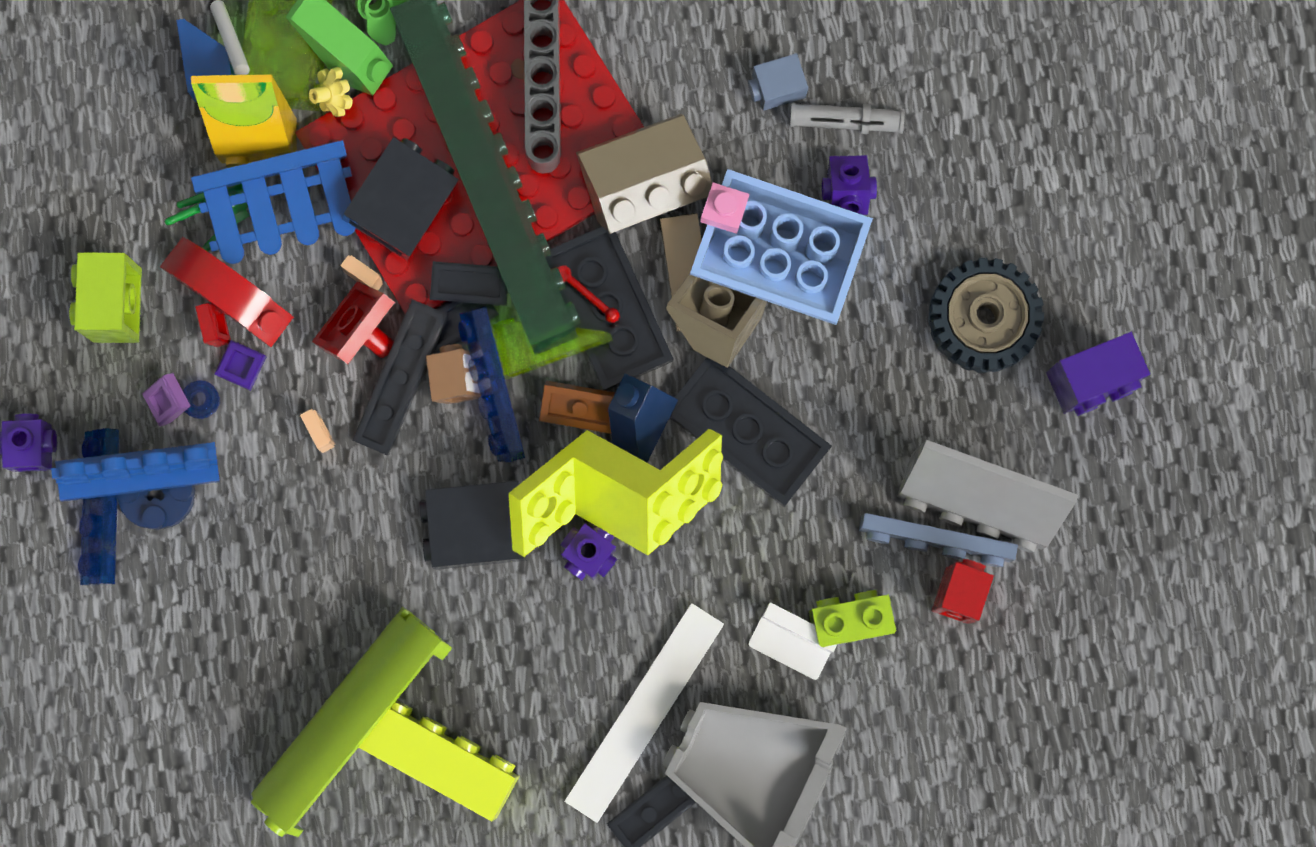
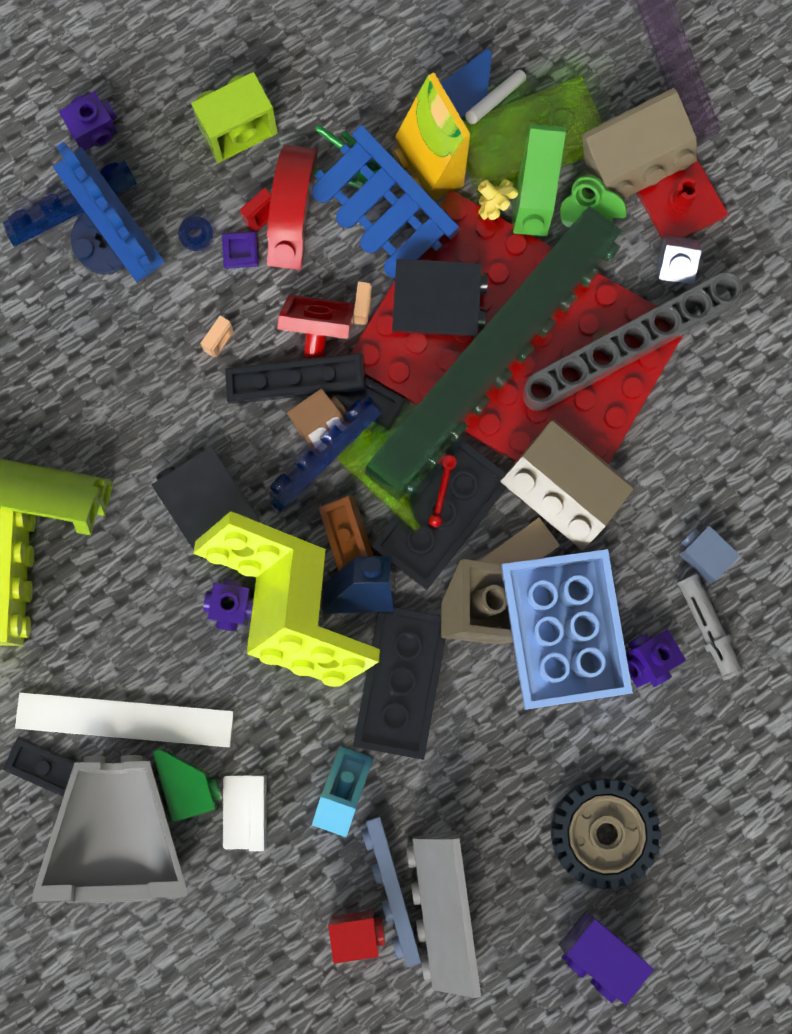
camera: 65 degrees right, 0 degrees up
(166, 399) = (181, 207): medium lavender tile -> none
(467, 284) = (396, 387): black tile -> none
(724, 208) = (572, 564): bright pink plate -> none
(741, 683) = (185, 786): none -> green slope
(822, 537) = (342, 791): none -> medium azure slope
(854, 620) = (285, 854): lime bracket -> none

